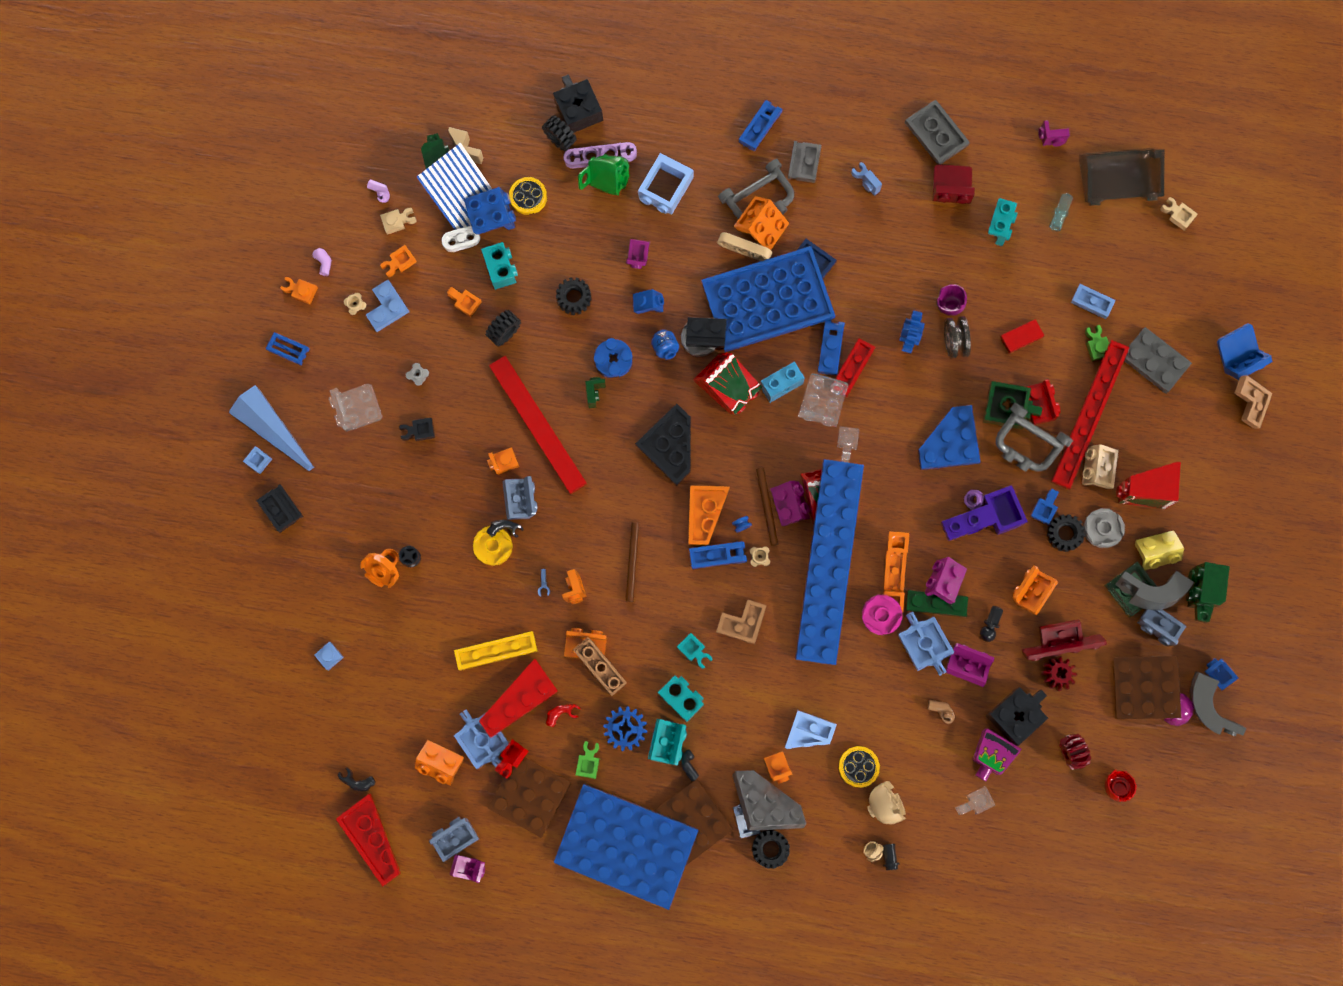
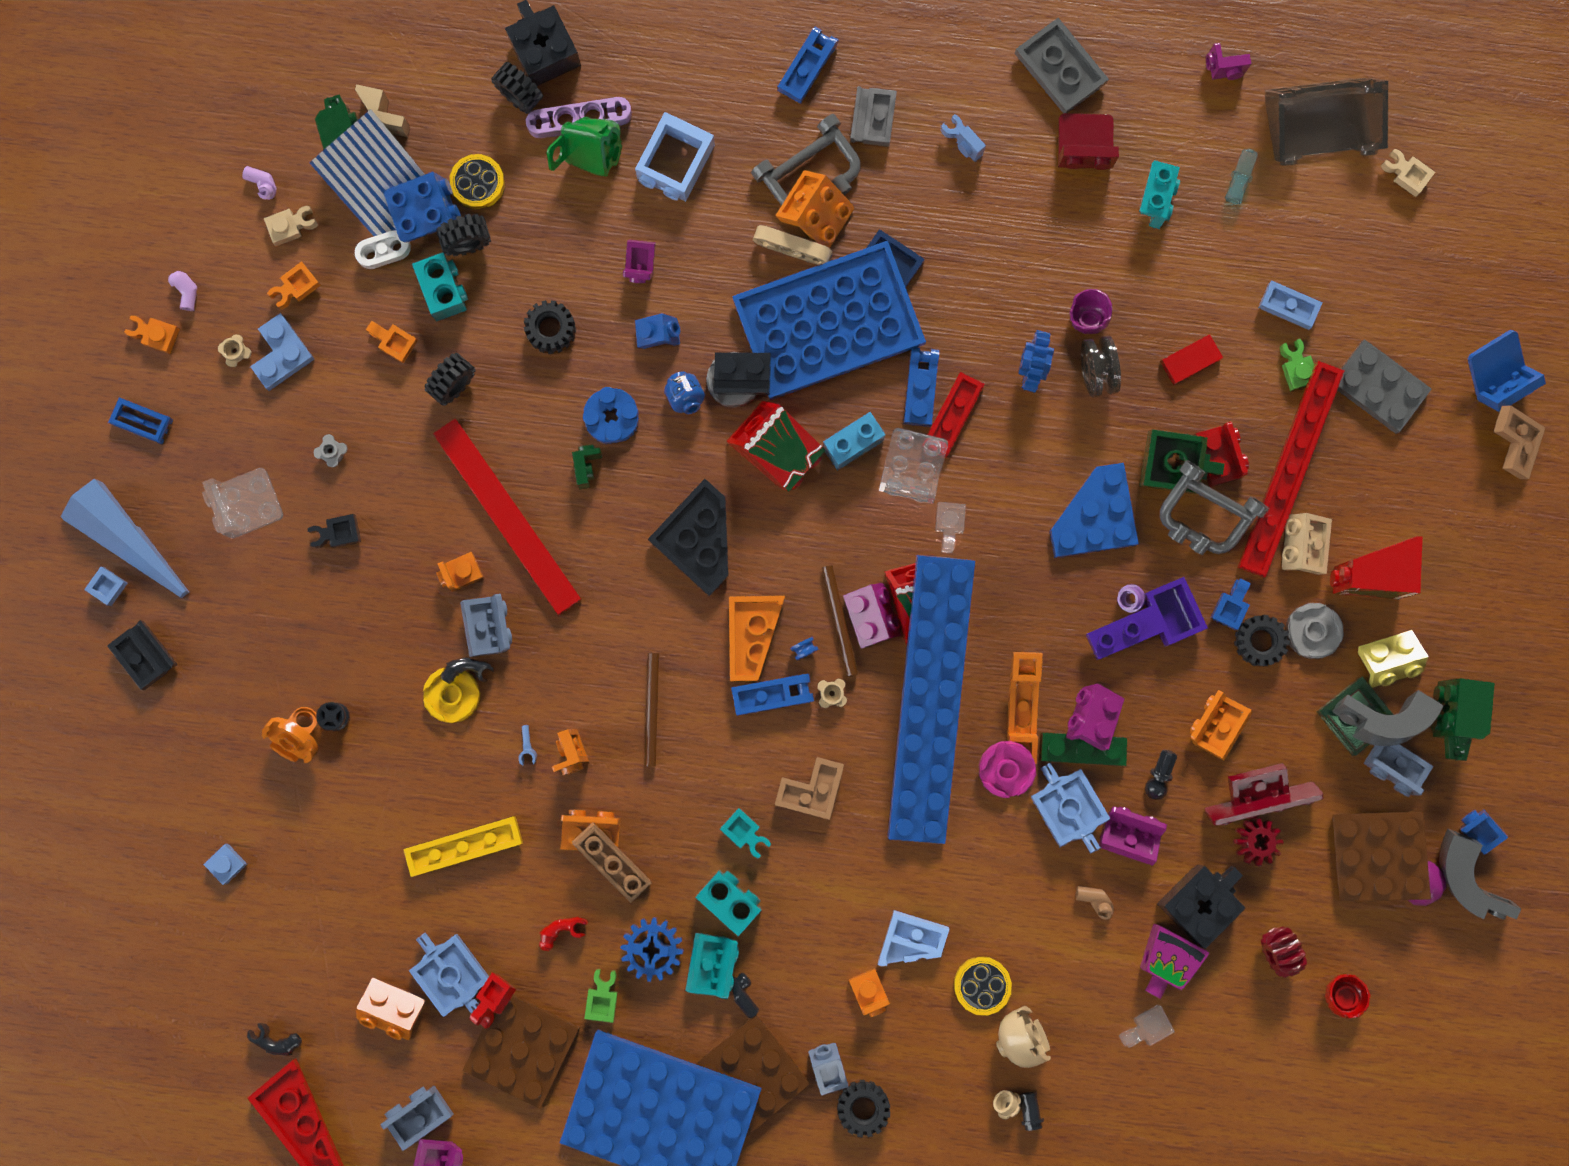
camera: 10 degrees left, 5 degrees up
(517, 231) = (463, 235): none -> black tyre
(521, 697) = (504, 909): red wing -> none
(766, 805) = (854, 1048): flat silver plate -> none

